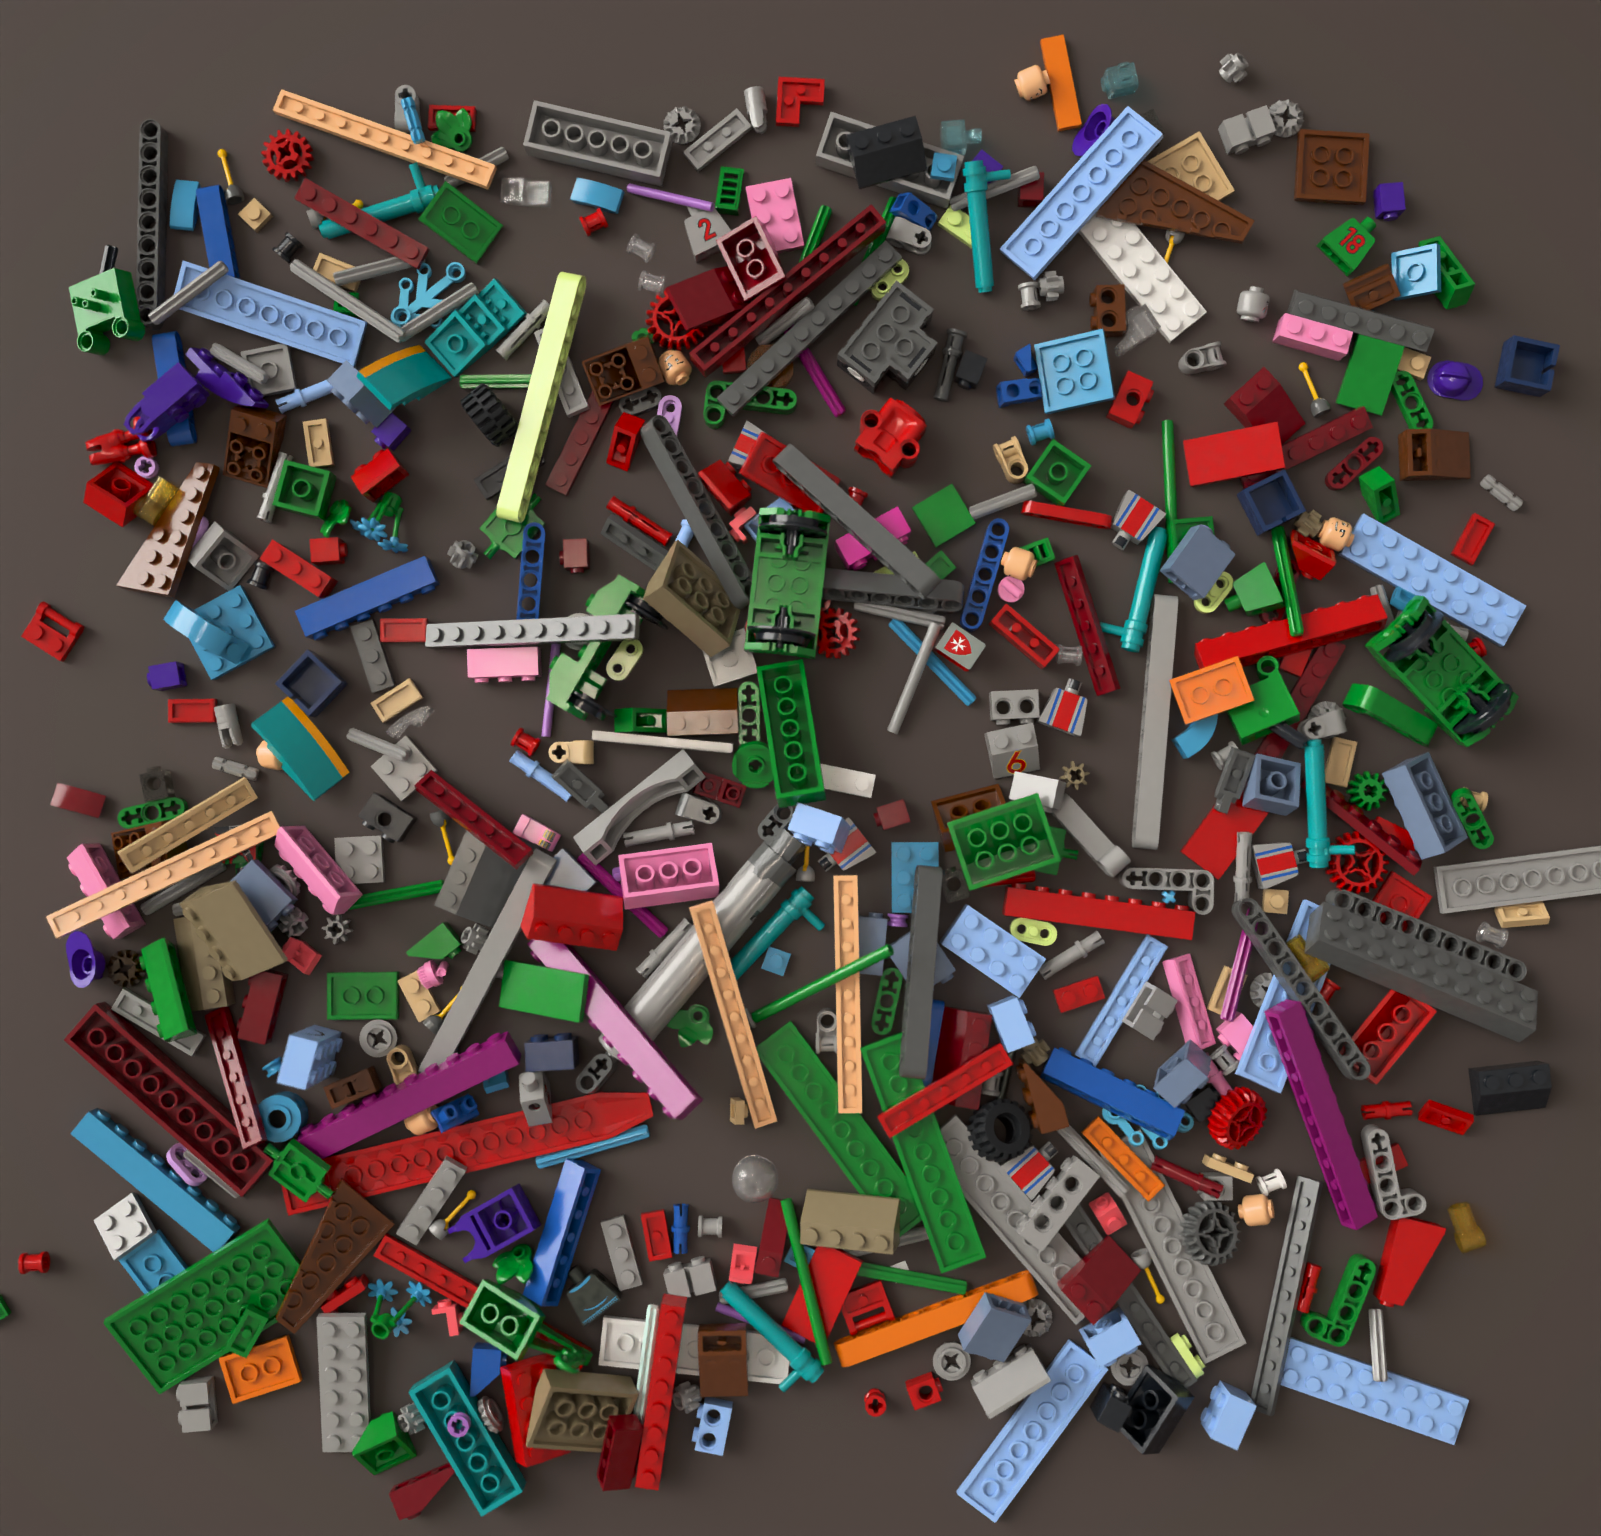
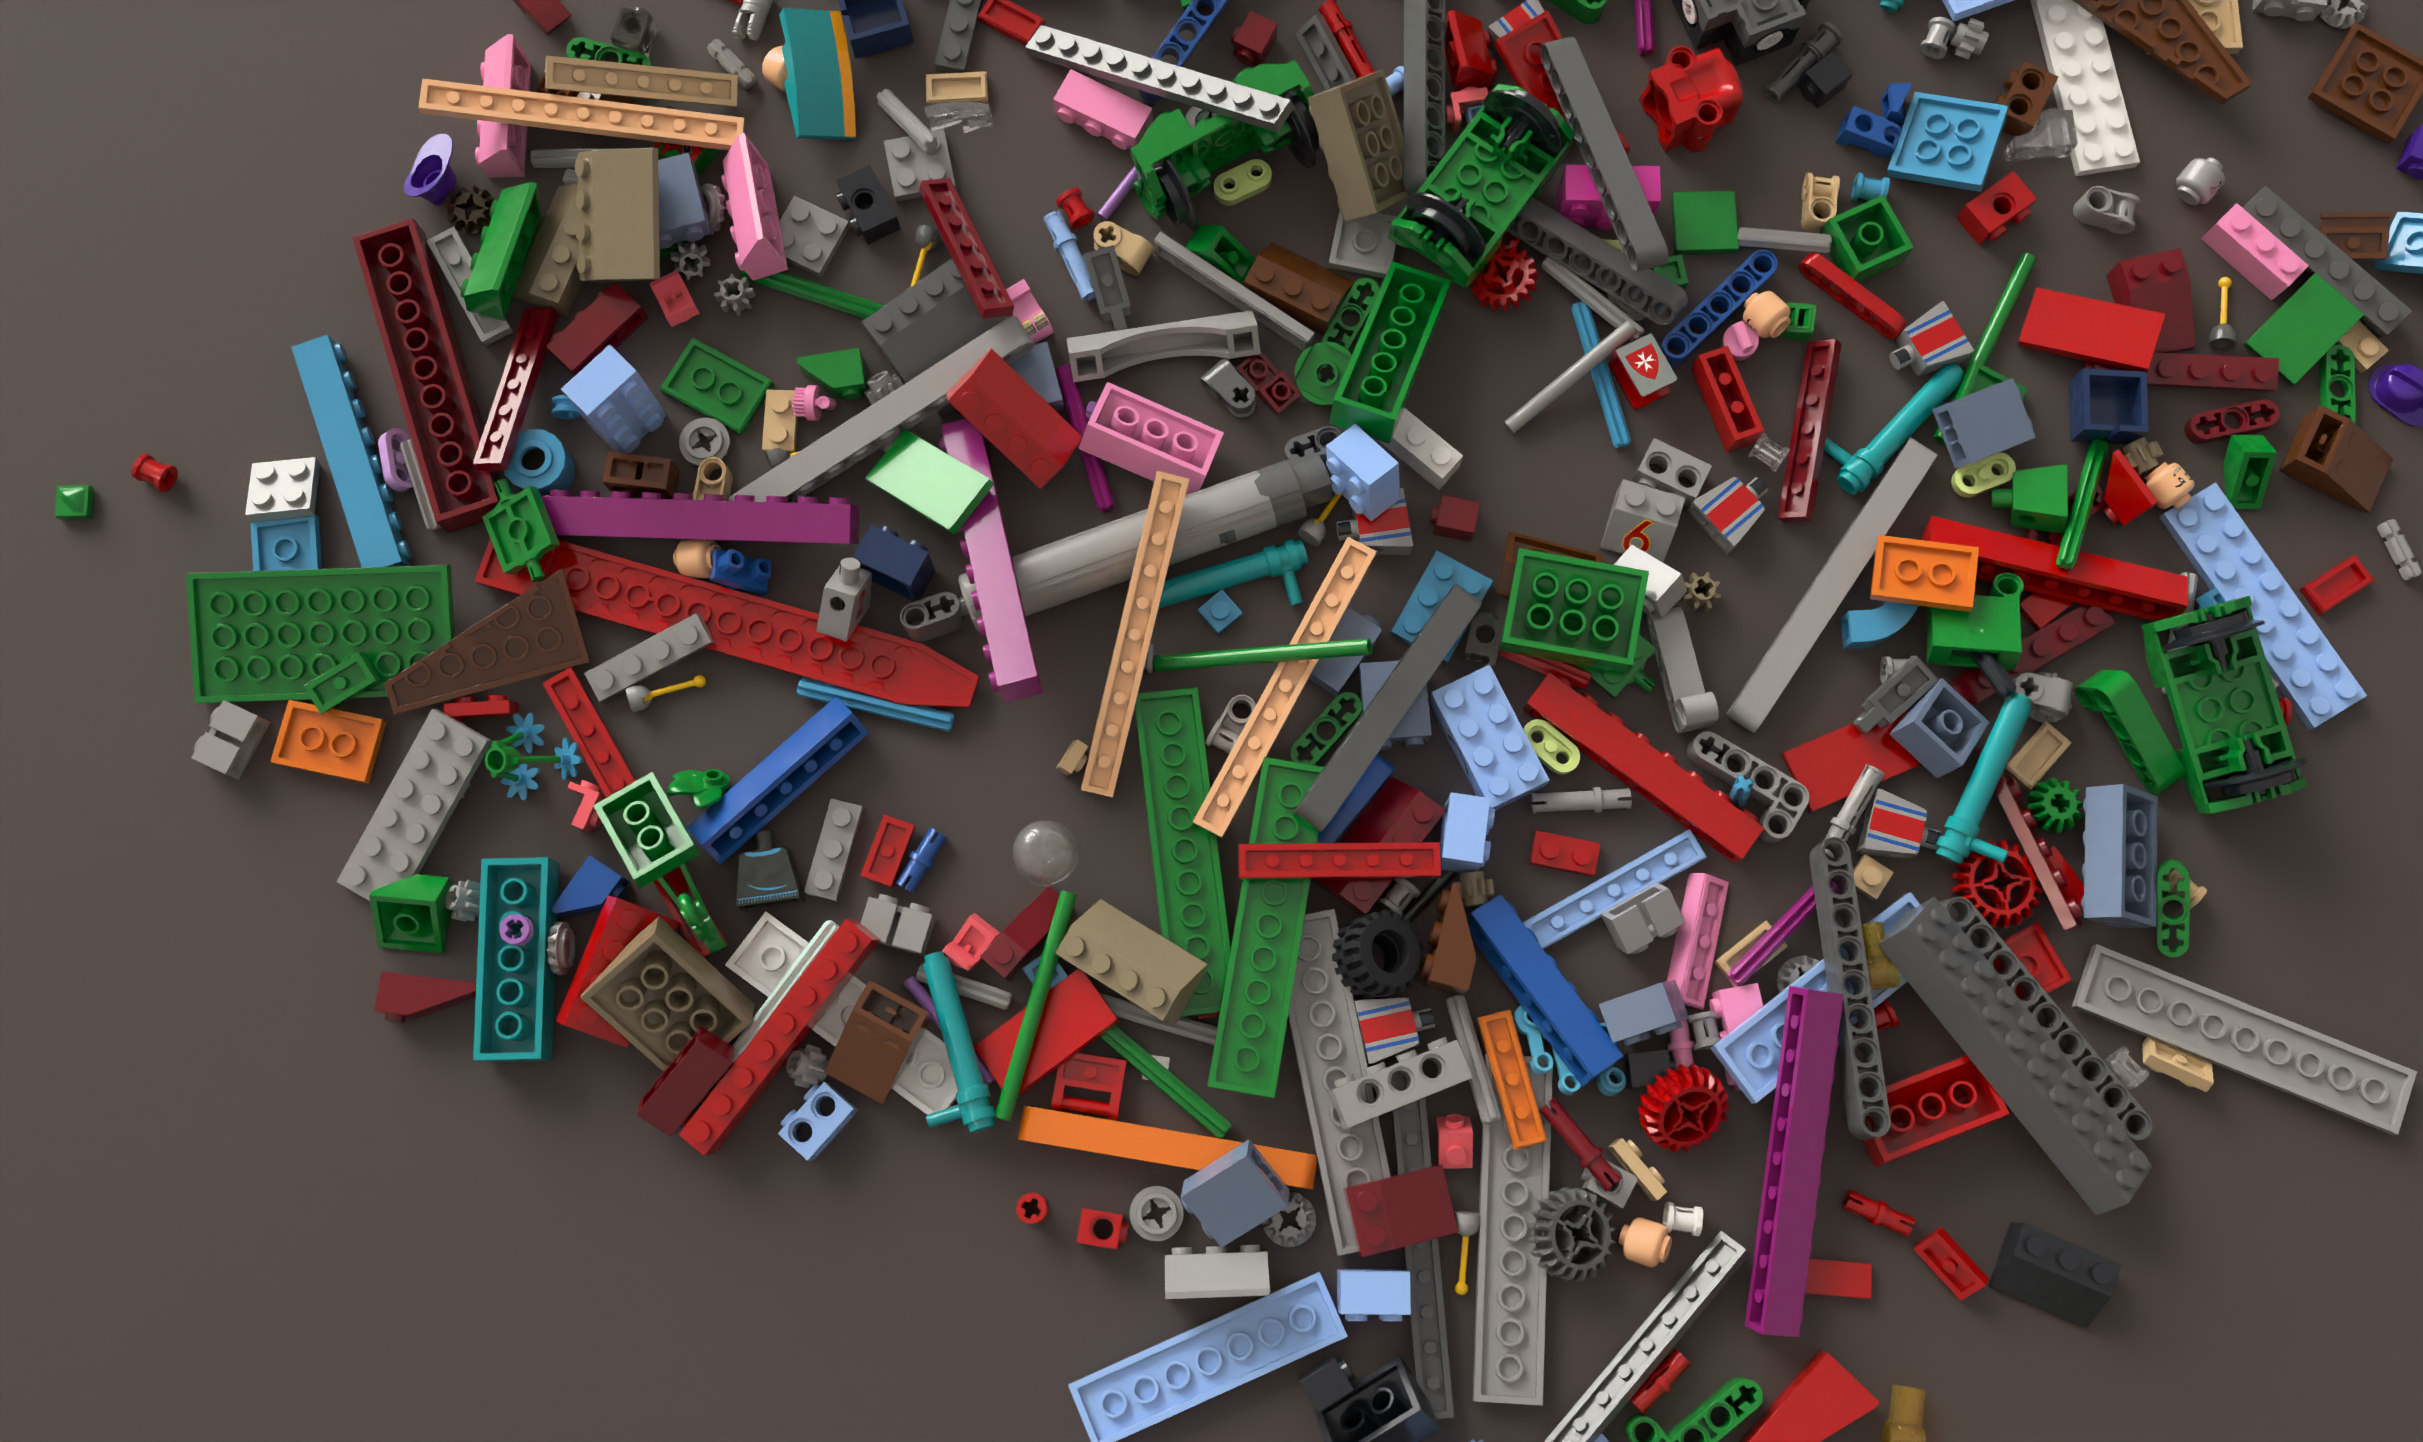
camera: 30 degrees right, 10 degrees down
(489, 1226) = (702, 729): dark purple brick -> none
(496, 1082) = (810, 561): dark azure plate -> none
(659, 833) = (1167, 391): light grey pin -> none
(663, 949) = (1083, 524): light grey pin -> none
(691, 1028) = (1073, 634): green plate -> none
(710, 1226) = (958, 877): light grey bush -> none
(897, 920) = (1393, 642): medium lavender bush -> none
(1120, 1372) = (1373, 1333): light grey gear -> none
(1172, 238) = (2141, 63): hinge -> none
(1183, 1346) = (1461, 1392): yellowish green plate -> none
(1348, 244) = (2350, 173): green torso -> none
(1386, 1170) = (1842, 1287): light grey beam -> none

